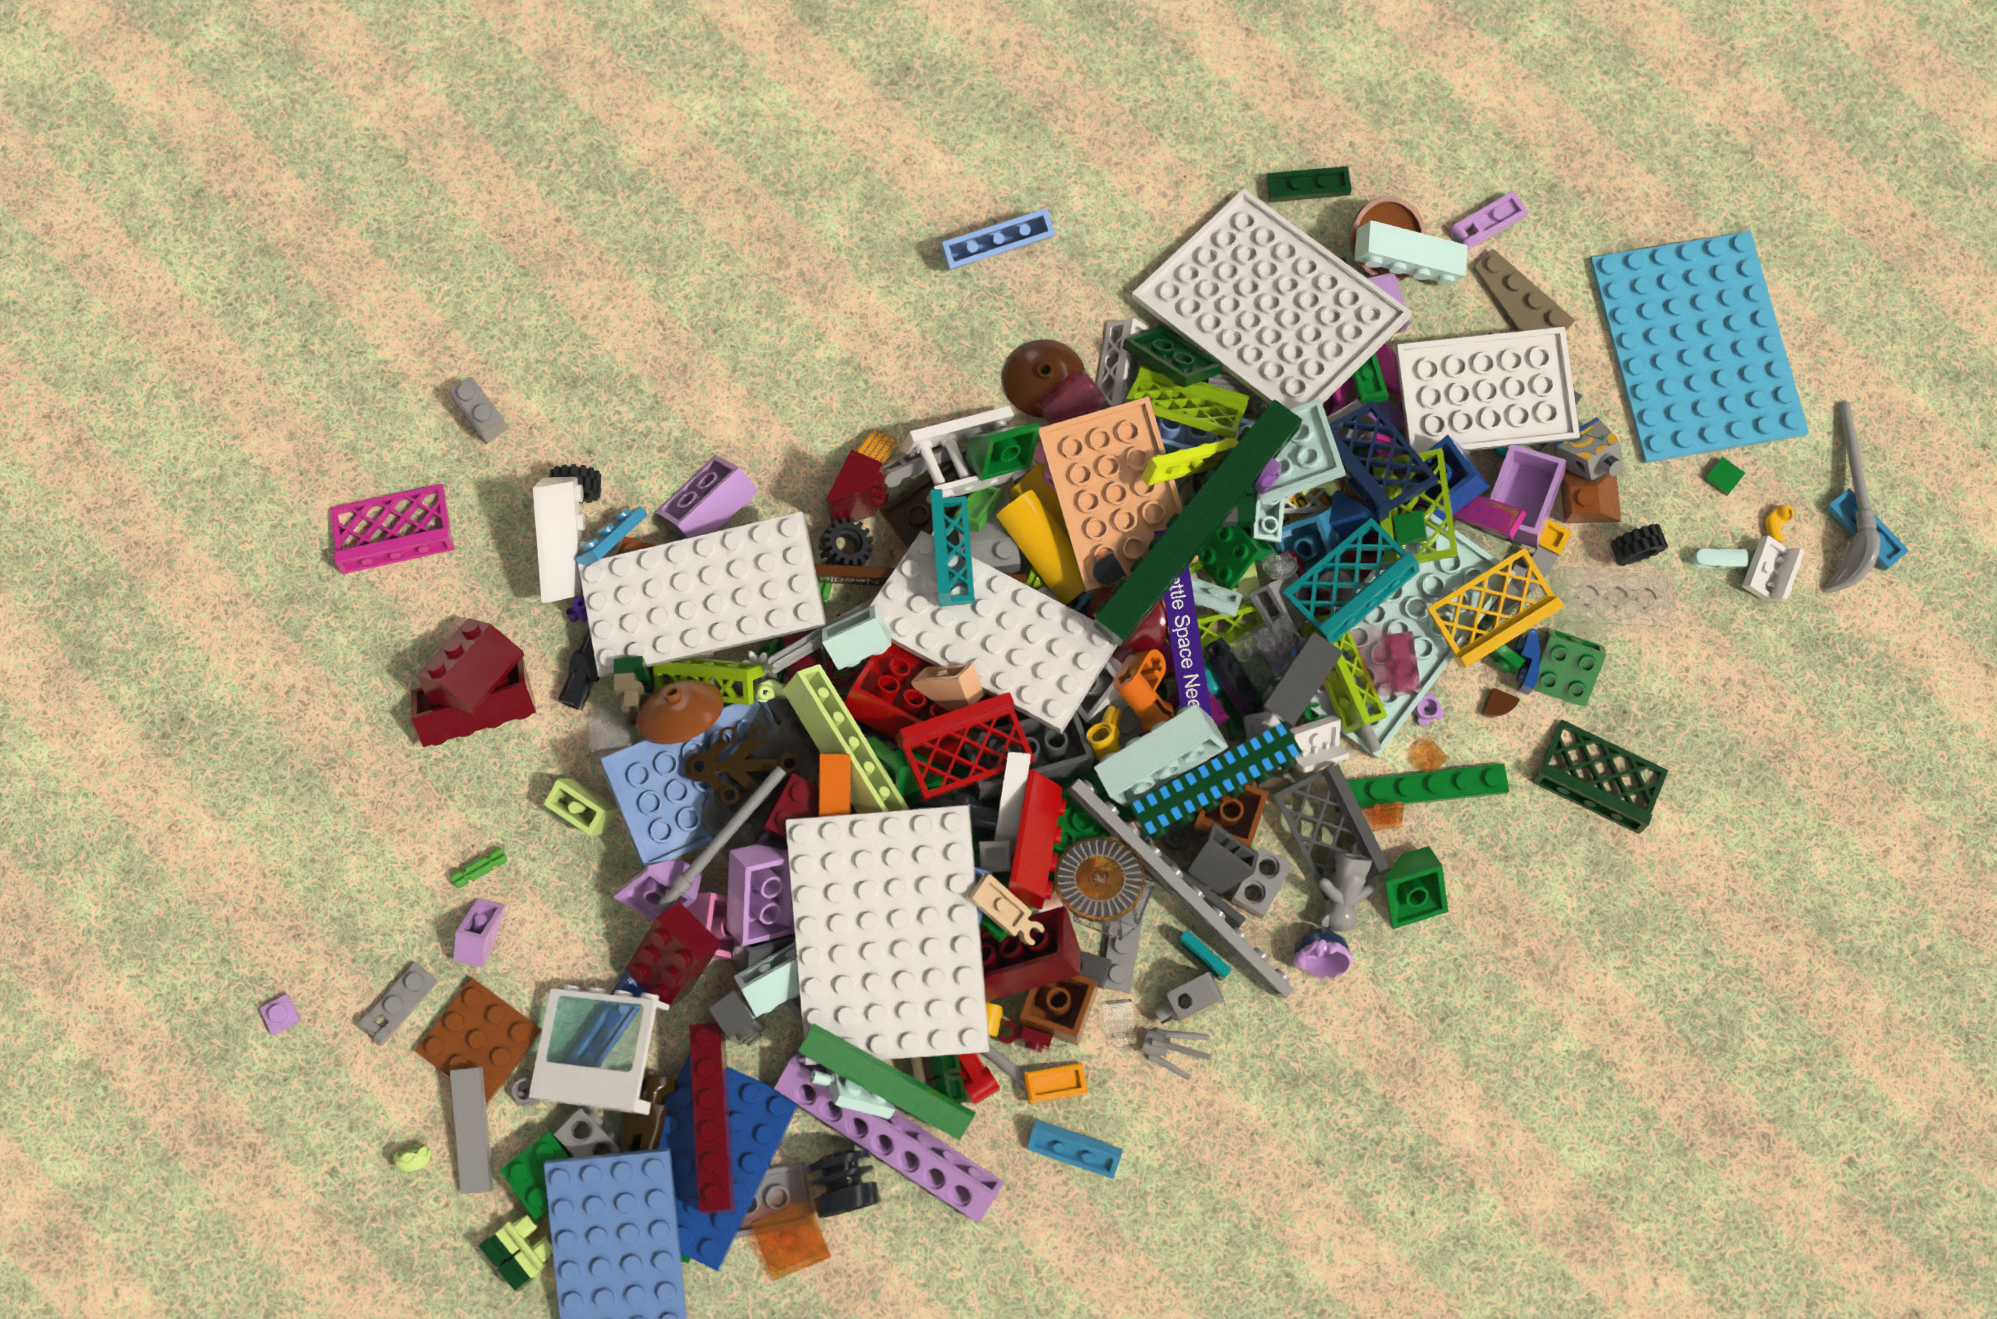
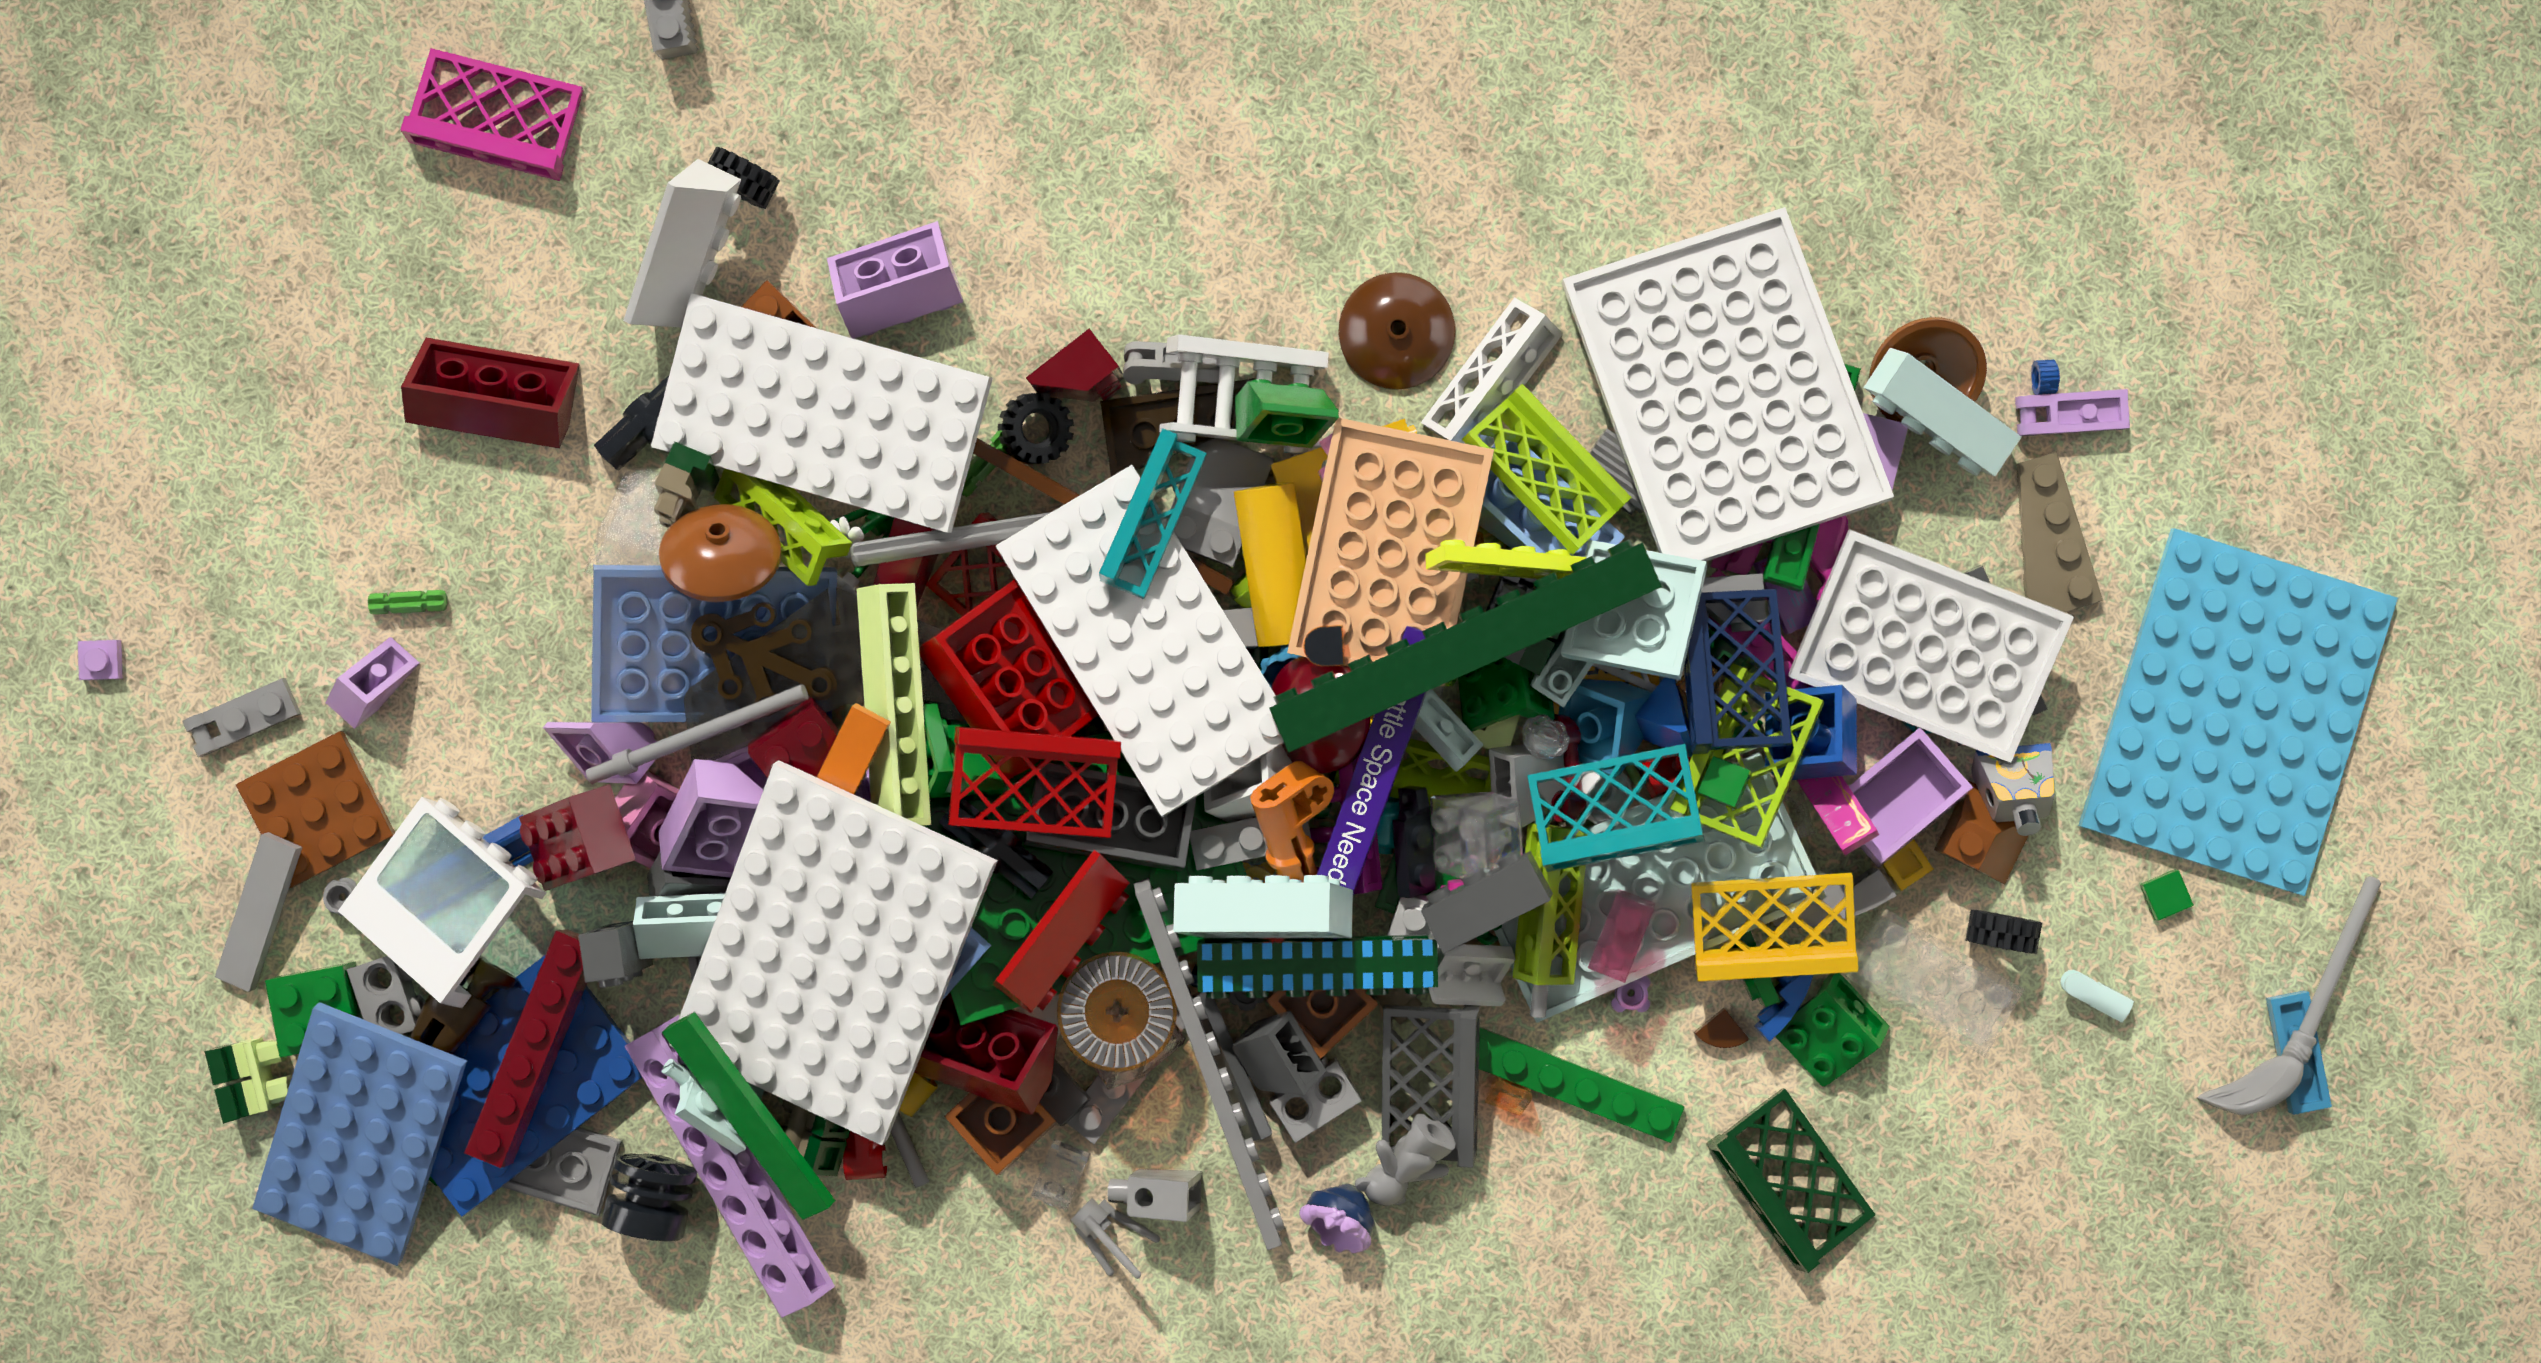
camera: 25 degrees right, 15 degrees up
(412, 1159) = (177, 908): yellowish green plate -> none
(469, 666) = (501, 355): dark red slope -> none
(578, 611) = (667, 342): dark purple arm -> none
(581, 806) = (557, 593): yellowish green brick -> none
(610, 535) = (750, 272): dark azure plate -> none
(768, 690) = (846, 574): yellowish green arm -> none
(790, 1239) = (562, 1222): clear orange plate -> none
(856, 638) = (976, 571): light aqua brick -> none
(878, 446) = (1130, 324): light orange tile -> none
(950, 685) = (1059, 688): light nougat slope -> none
(981, 506) = (1224, 464): bright green tile -> none
(995, 855) = (1006, 923): white tile -> none
(997, 239) = (1431, 118): light blue brick -> none
(1003, 908) = (978, 999): tan plate -> none
(1012, 798) = (1055, 875): white sticker -> none
(1033, 1039) = (951, 1142): dark red plate -> none
(1055, 1083) = (952, 1203): light orange tile -> none
(1071, 398) = (1407, 385): clear pink brick -> none
(1074, 1149) = (935, 1288): dark azure plate -> none
(1105, 735) = (1218, 841): yellow axle -> none
(1172, 356) = (1563, 395): dark green plate -> none
(1204, 955) = (1202, 1148): teal tile -> none
(1268, 476) = (1582, 632): medium lavender tile -> none
(1308, 184) = (1872, 243): dark green plate -> none
(1415, 888) = (1492, 1198): green slope -> none
(1429, 756) = (1600, 1050): clear orange tile -> none
(1459, 208) = (2045, 377): none -> blue axle
(1772, 570) = (2150, 1044): white bracket -> none
(1776, 520) = (2192, 983): yellow arm -> none

